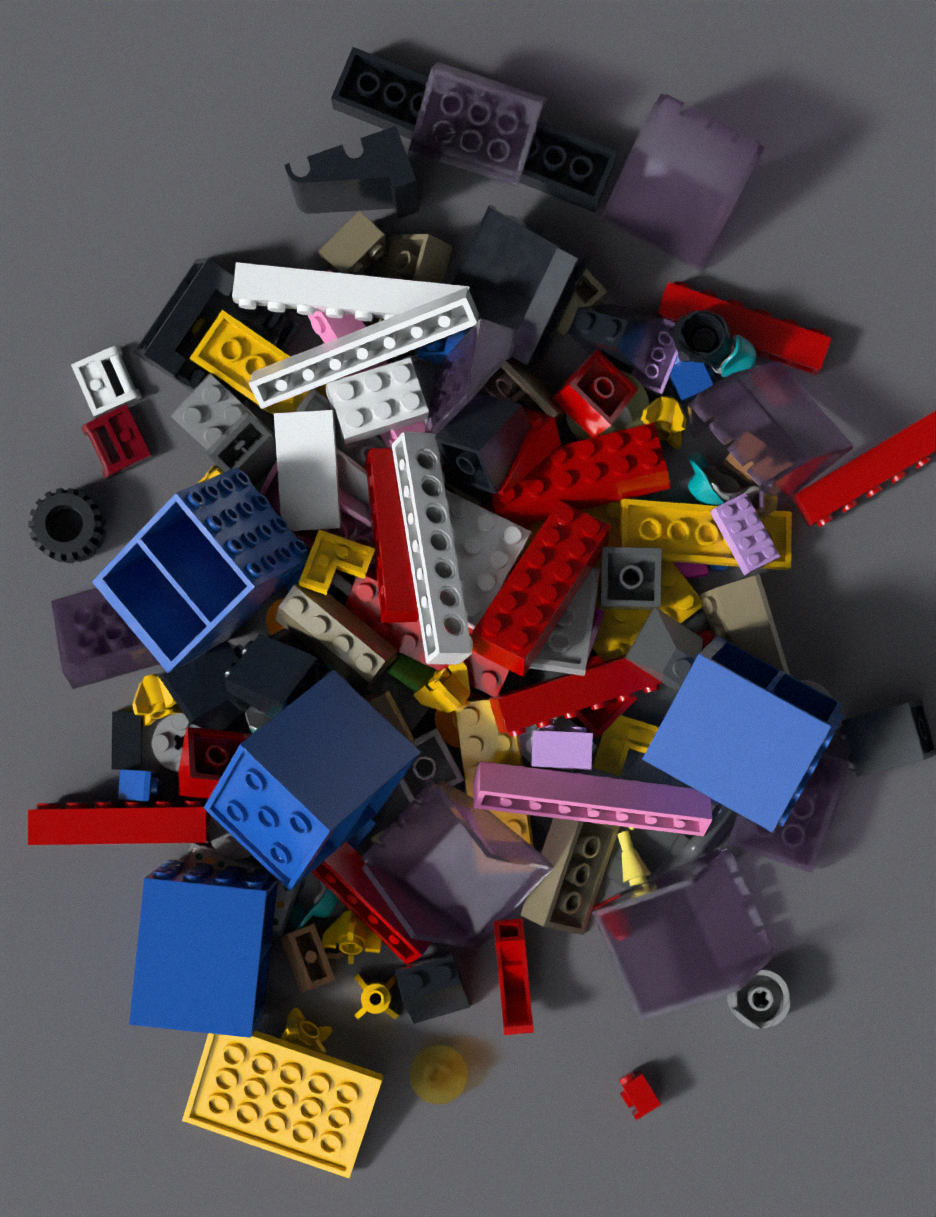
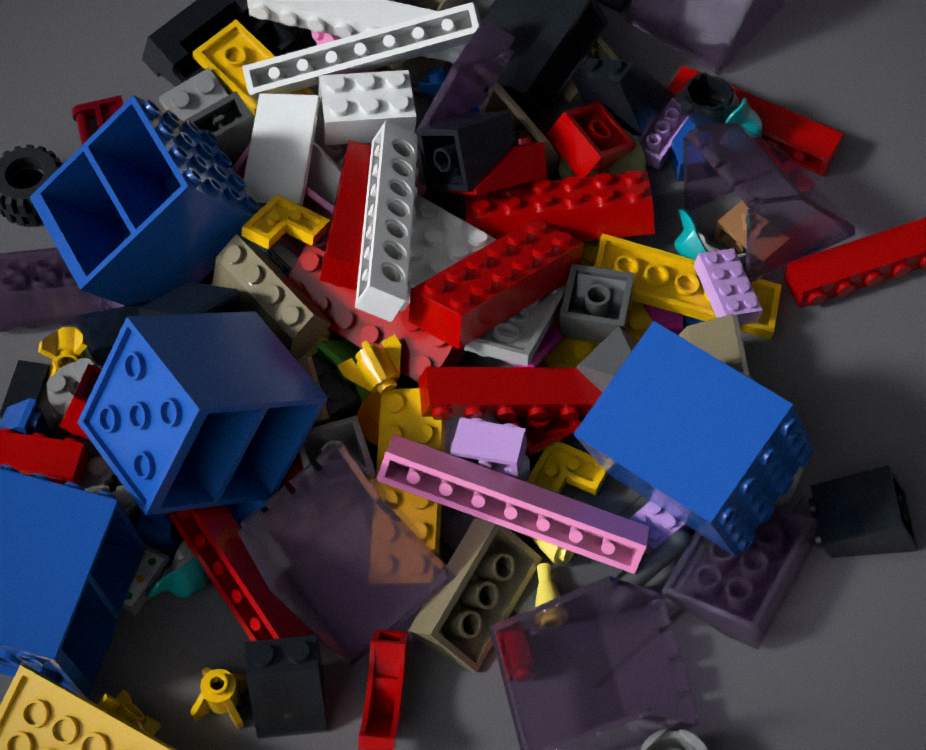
camera: 10 degrees right, 25 degrees down
(97, 385) = (98, 76): white plate -> none
(308, 958) = (156, 635): medium nougat brick -> none
(351, 936) = (209, 617): yellow brick -> none
(668, 419) = (662, 179): yellow brick -> none

